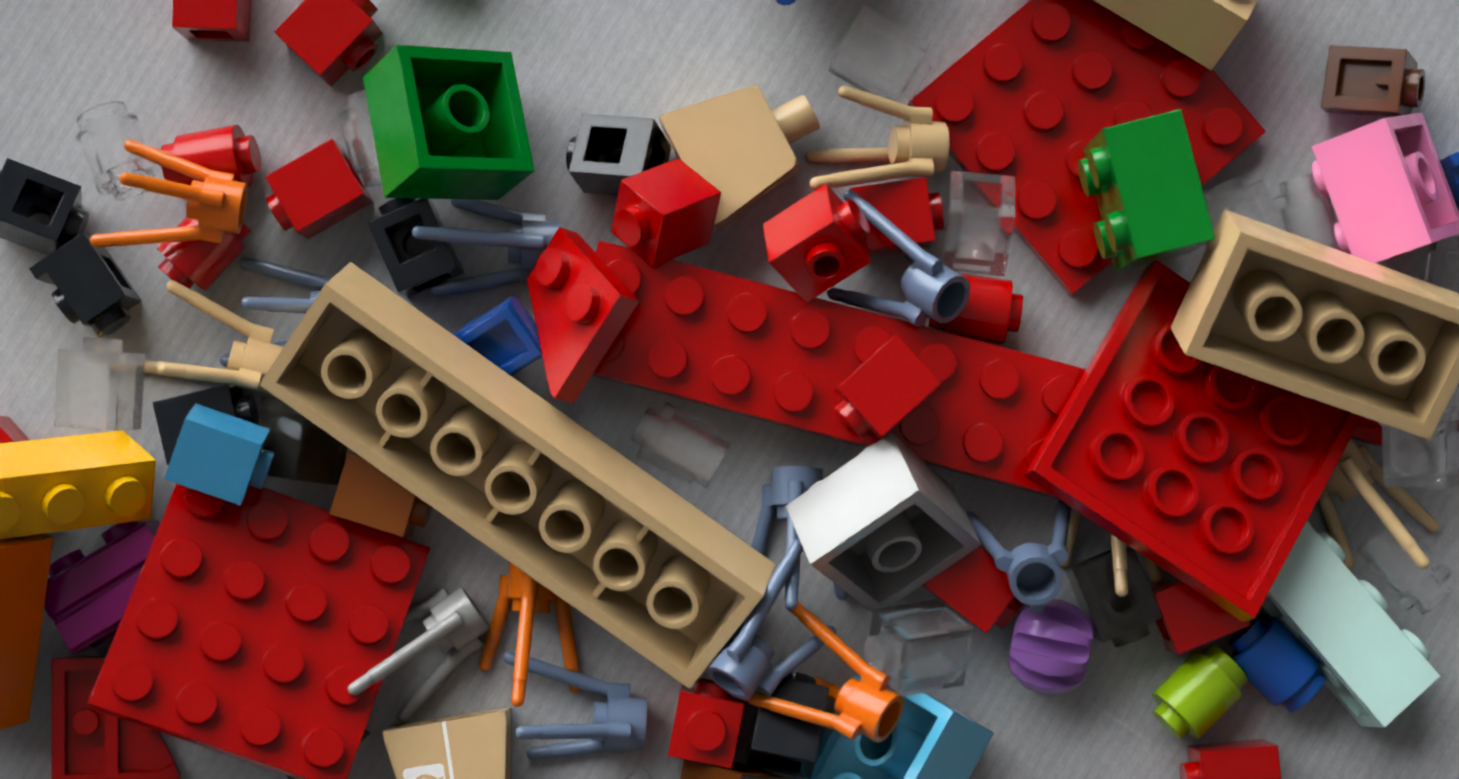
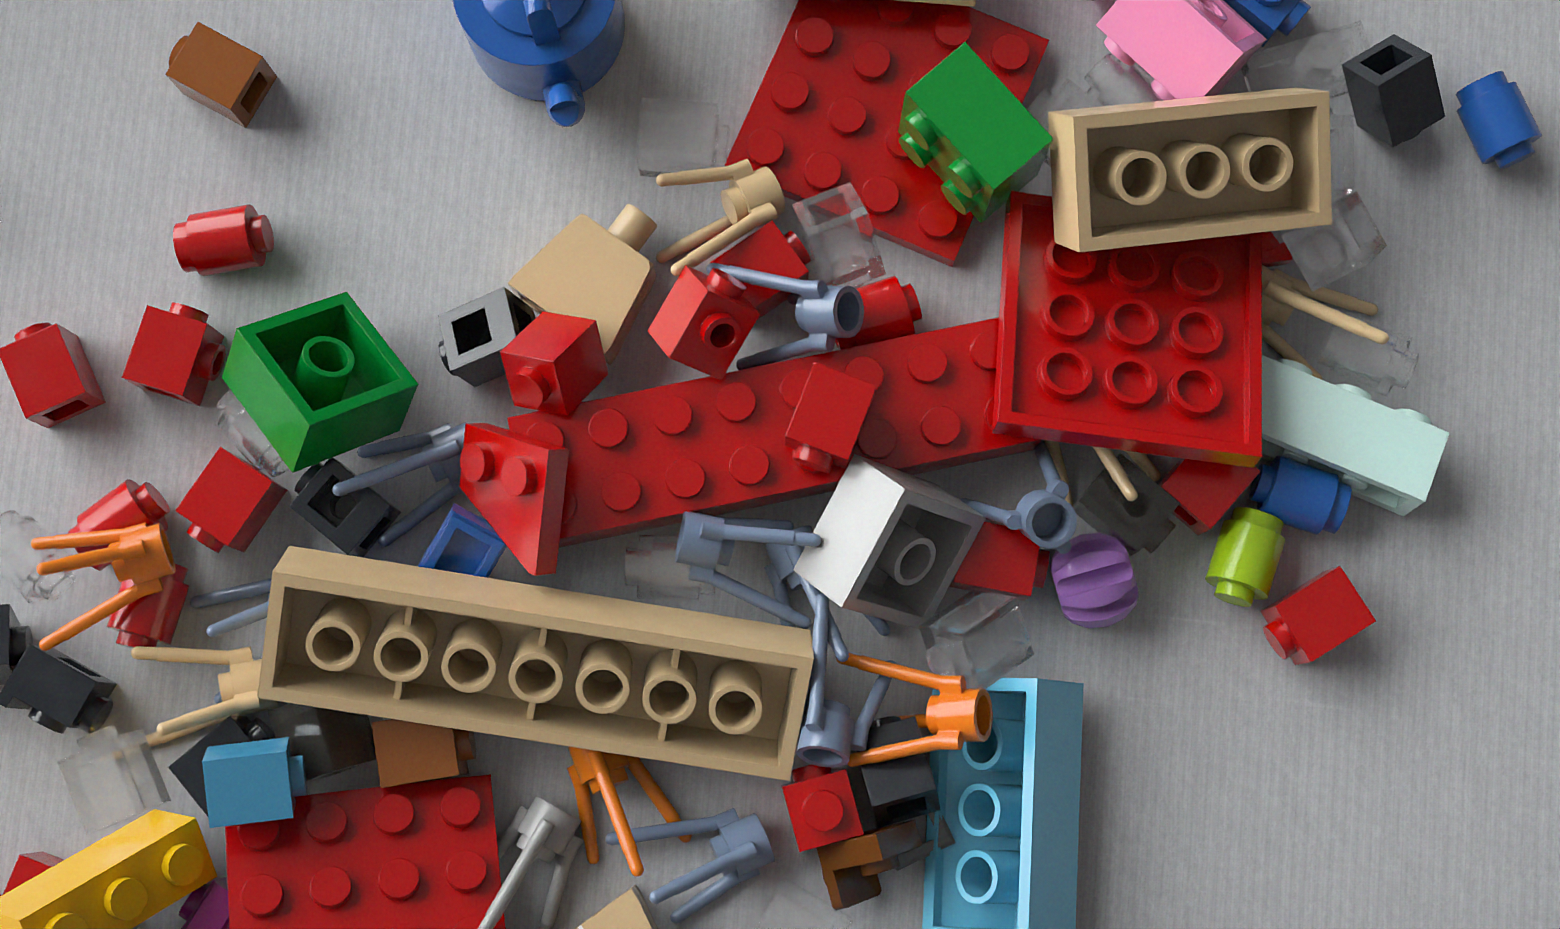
camera: 30 degrees left, 5 degrees down
(724, 442) = (710, 541): none -> sand blue plant

